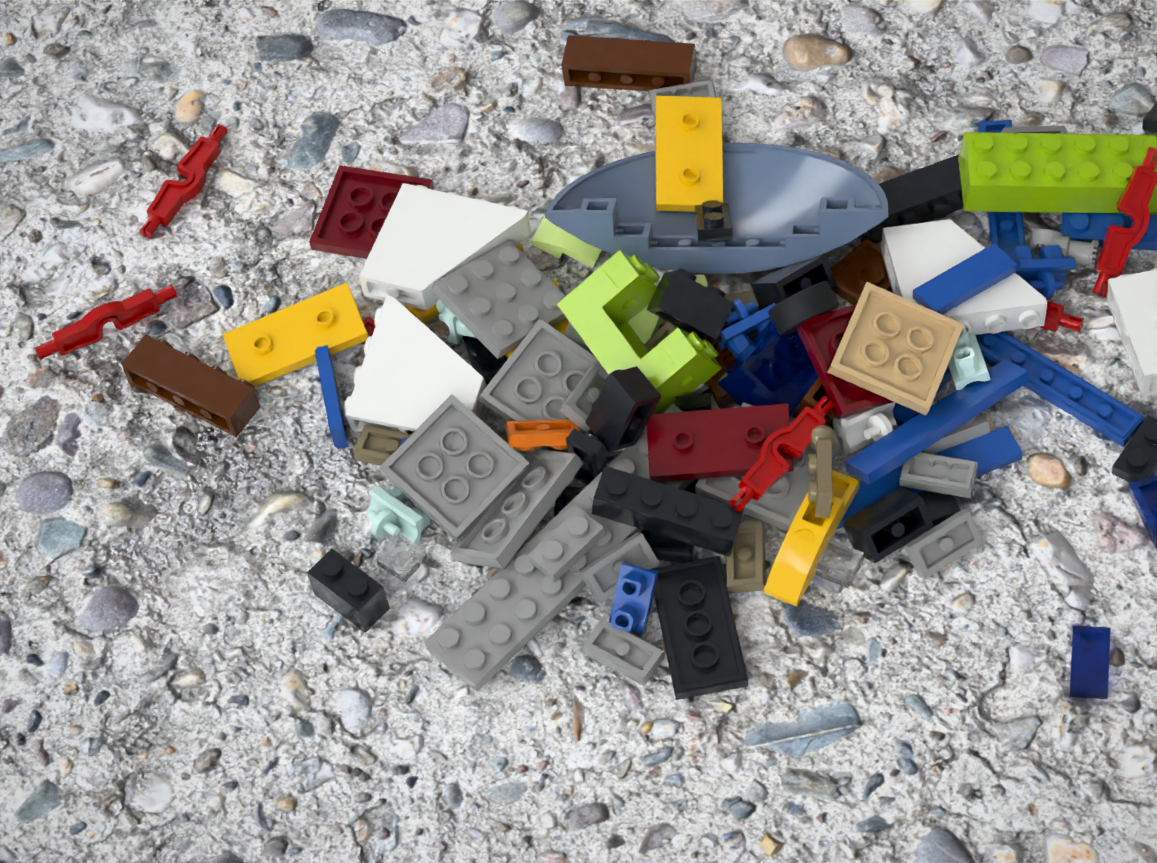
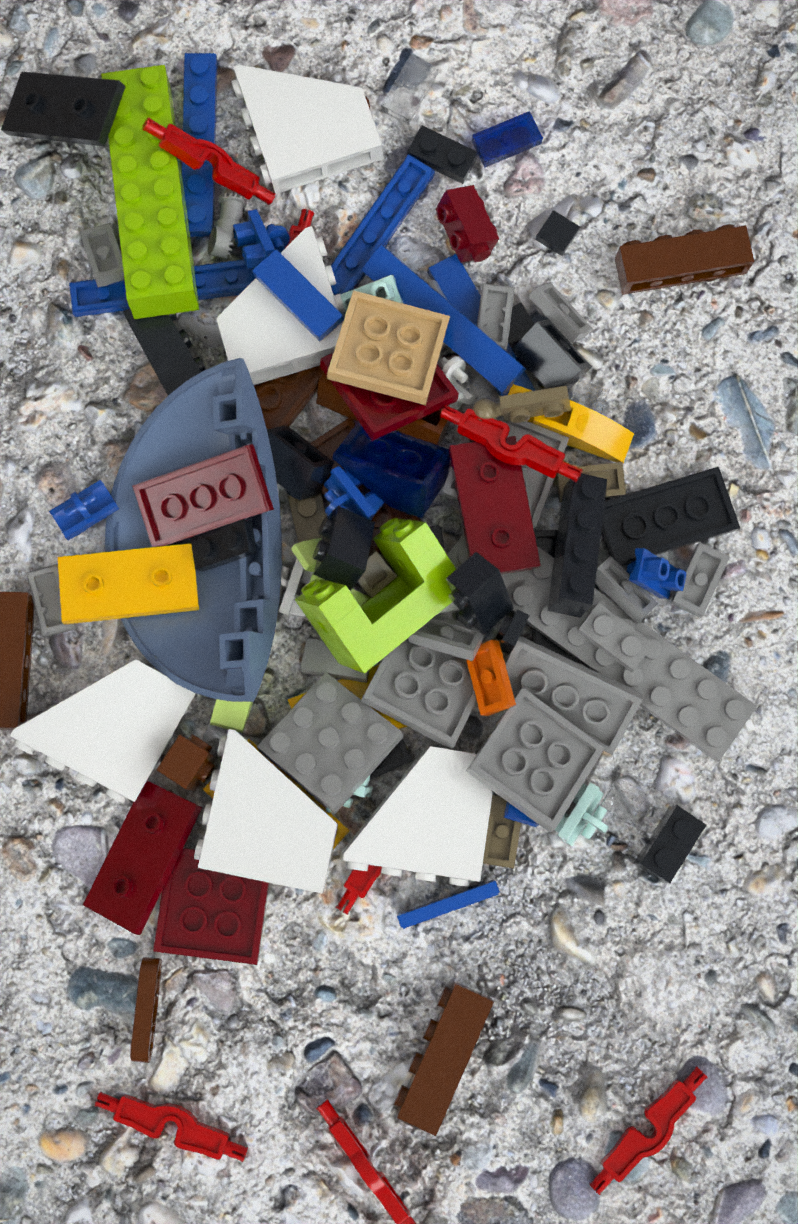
camera: 110 degrees left, 25 degrees up
(88, 567) = (634, 1145): none -> red piece
(291, 335) = (374, 957): yellow plate -> none
(307, 164) = (146, 1010): none -> reddish brown beam
(426, 159) = (142, 857): none -> dark red plate
(504, 181) = (188, 762): none -> reddish brown brick
(545, 131) = (110, 728): none -> white slope
(762, 203) = (203, 496): none -> plate
(767, 121) = (84, 510): none -> blue hips
(802, 307) = (371, 426): black tyre -> none
(999, 672) = (683, 259): none -> reddish brown brick
(1042, 460) = (467, 224): none -> dark red brick
(1043, 555) = (557, 233): none -> black tile
(1090, 662) = (658, 192): clear blue tile -> none

